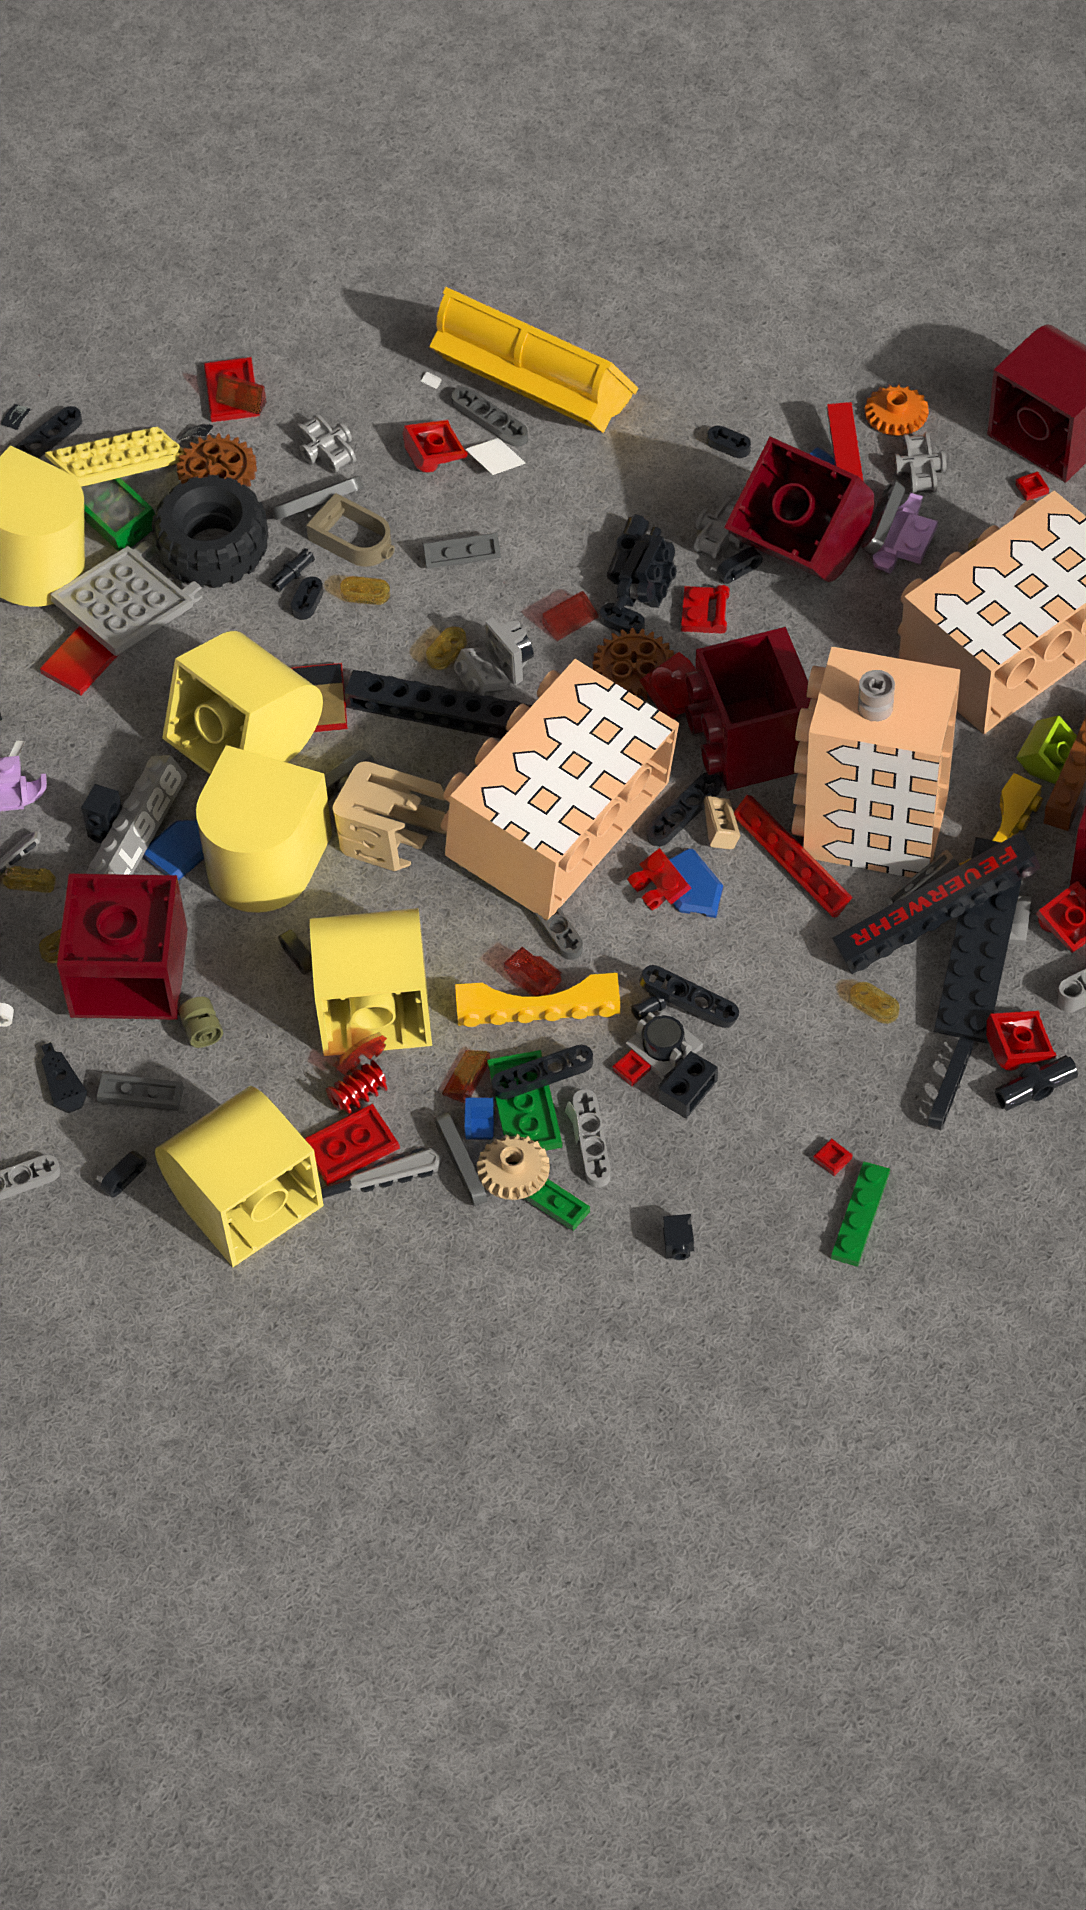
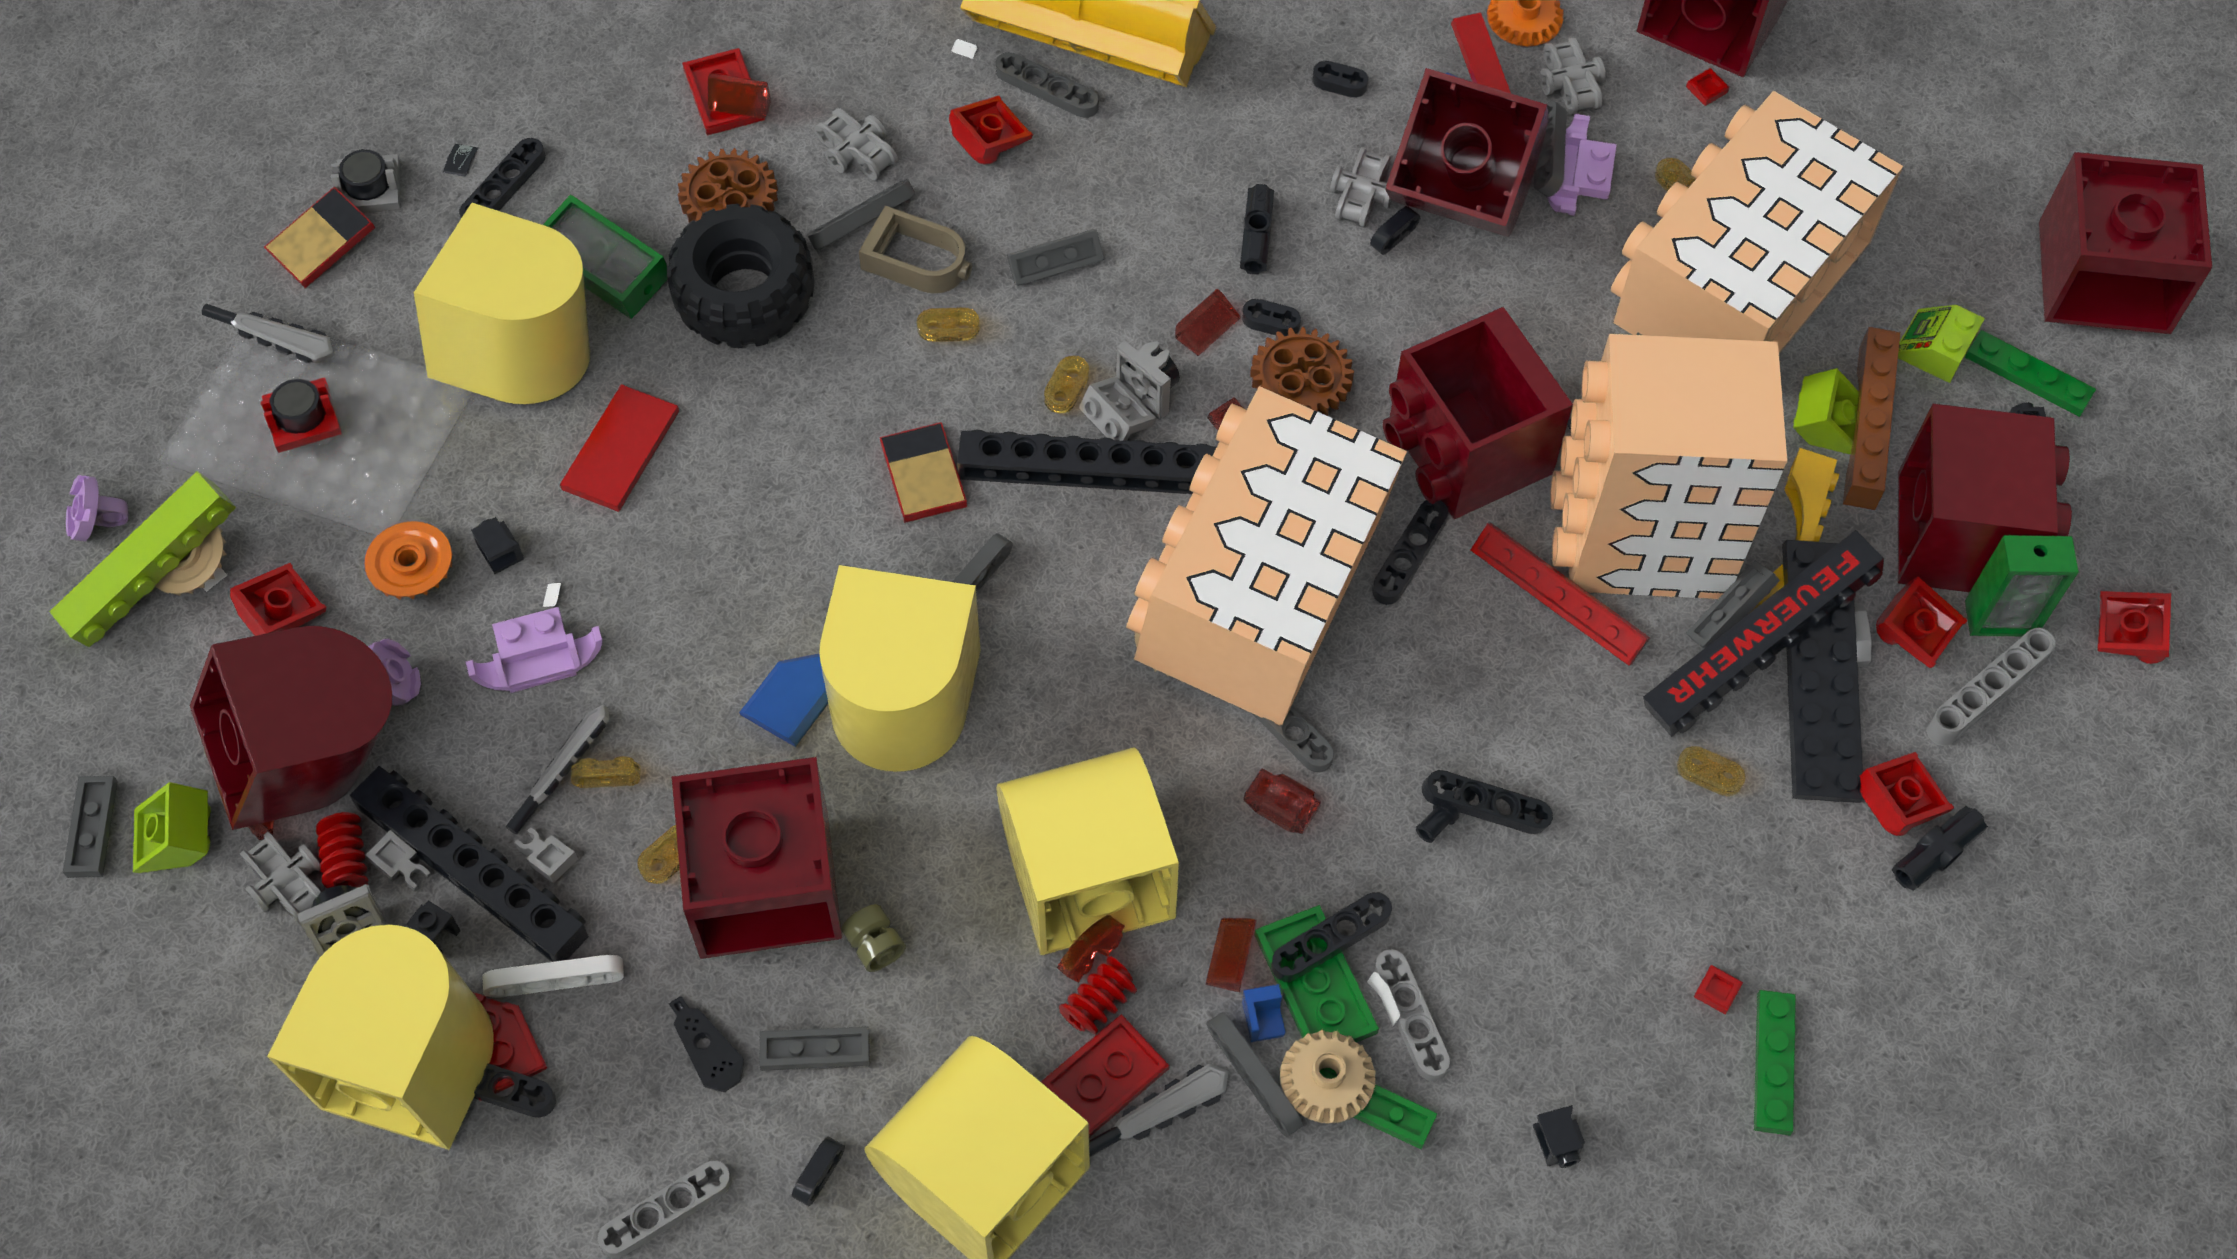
camera: 15 degrees left, 5 degrees up
(100, 811) = (685, 671): black brick -> none
(117, 456) = (602, 195): light yellow plate -> none
(124, 599) = (649, 378): light grey plate -> none
(139, 817) = (730, 678): light grey brick -> none
(200, 430) = (695, 148): black sticker -> none
(240, 699) = (832, 499): light yellow brick -> none
(291, 570) = (851, 310): black pin -> none
(296, 951) = (975, 818): black beam -> none
(302, 596) = (871, 342): black beam -> none
(387, 792) = (1048, 593): tan piece -> none
(495, 456) = (1066, 133): white sticker -> none
(591, 997) = (1229, 853): yellow arch -> none
(631, 1067) = (1436, 908): red tile -> none
(646, 572) = (1289, 254): black piece -> none
(663, 1041) = (1469, 868): piece -> none
(664, 875) = (1413, 645): red plate -> none
(668, 686) = (1359, 393): red slope -> none
(692, 1086) = (1517, 922): black brick -> none
(696, 609) = (1357, 293): red plate -> none
(705, 886) = (1442, 649): blue tile -> none
(721, 825) = (1465, 574): tan slope -> none
(876, 695) = (1693, 393): light grey wheel -> none
(950, 1083) = (1837, 866): black beam -> none

